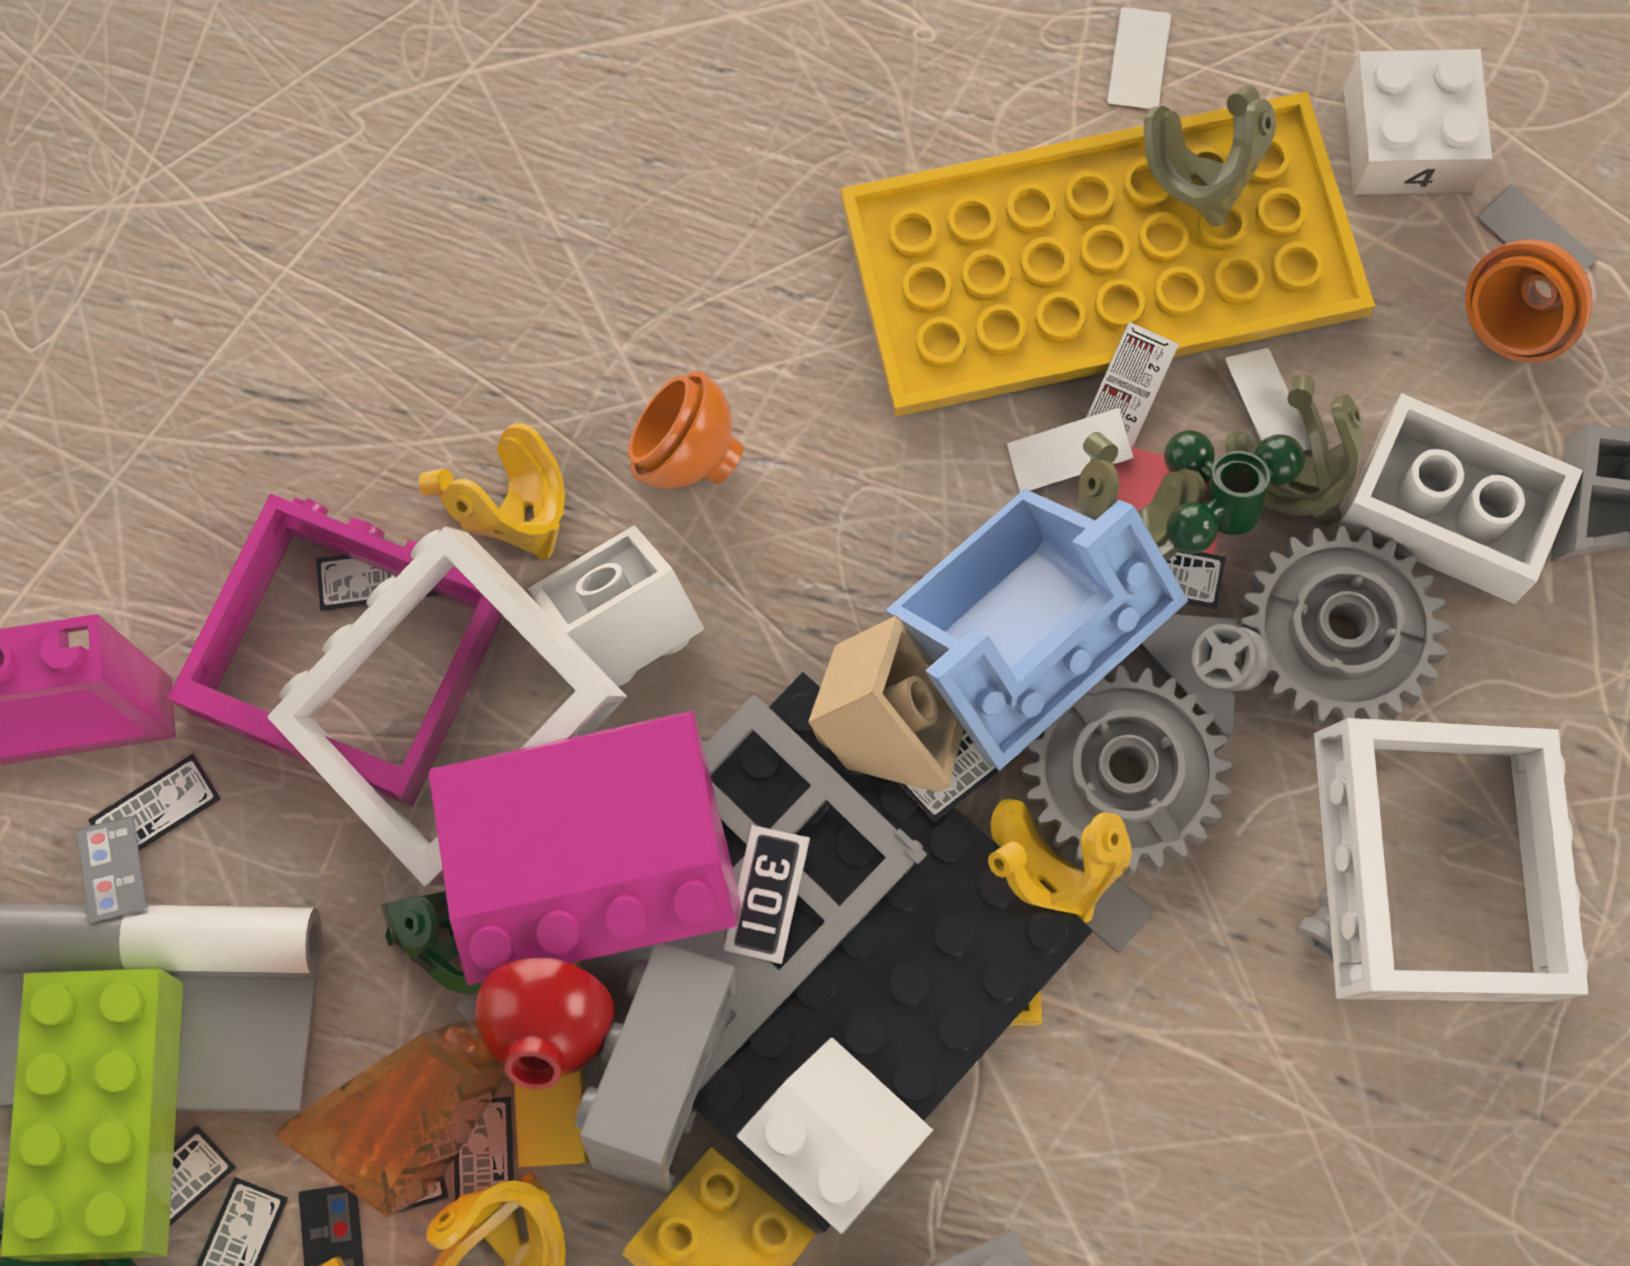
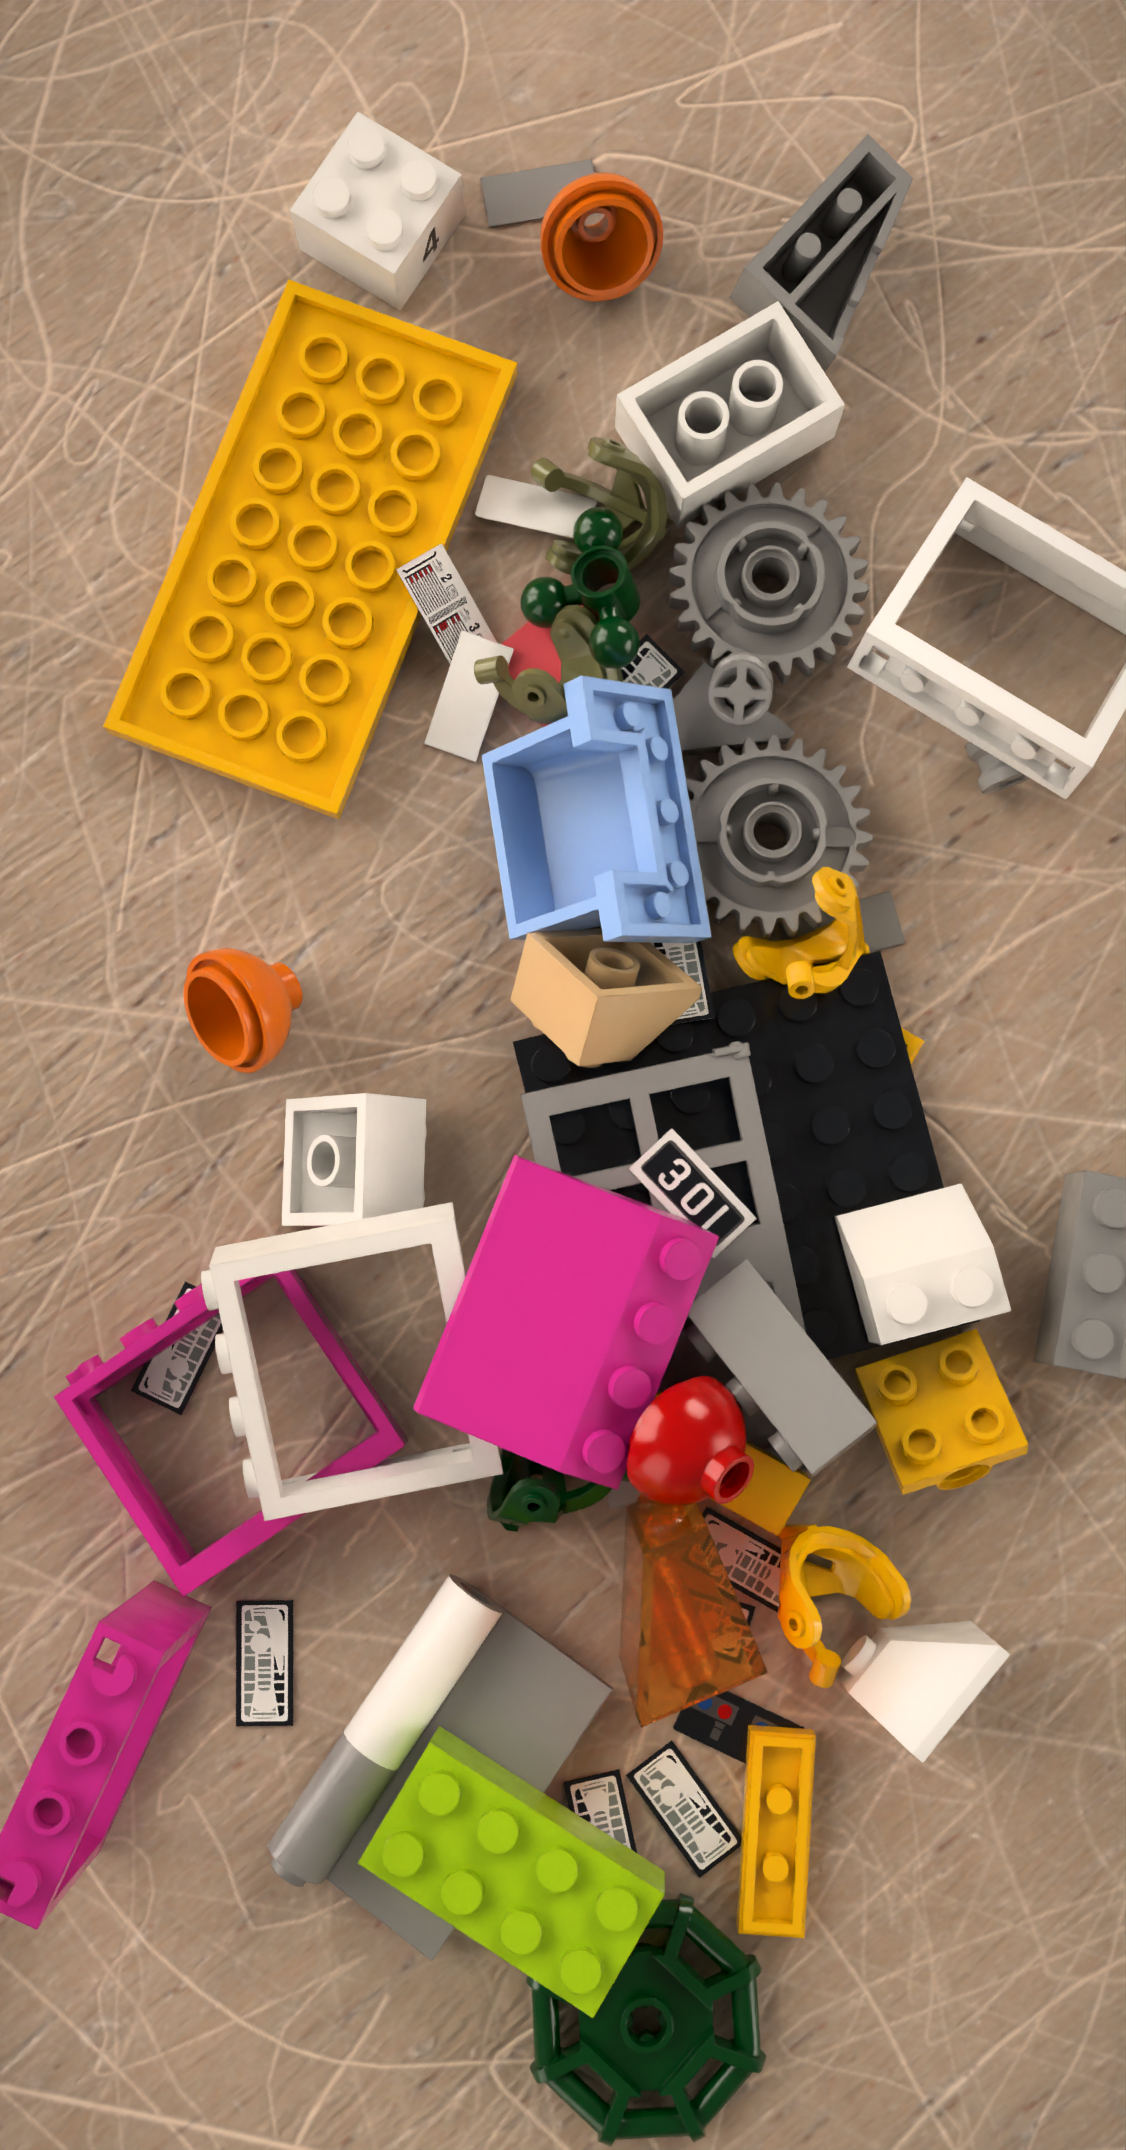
camera: 60 degrees left, 10 degrees up
(111, 869) = (300, 1732): sticker -> none
(532, 482) = (188, 1161): yellow helmet -> none
(1139, 58) = (153, 396): white sticker -> none
(1176, 165) = (327, 401): olive helmet -> none

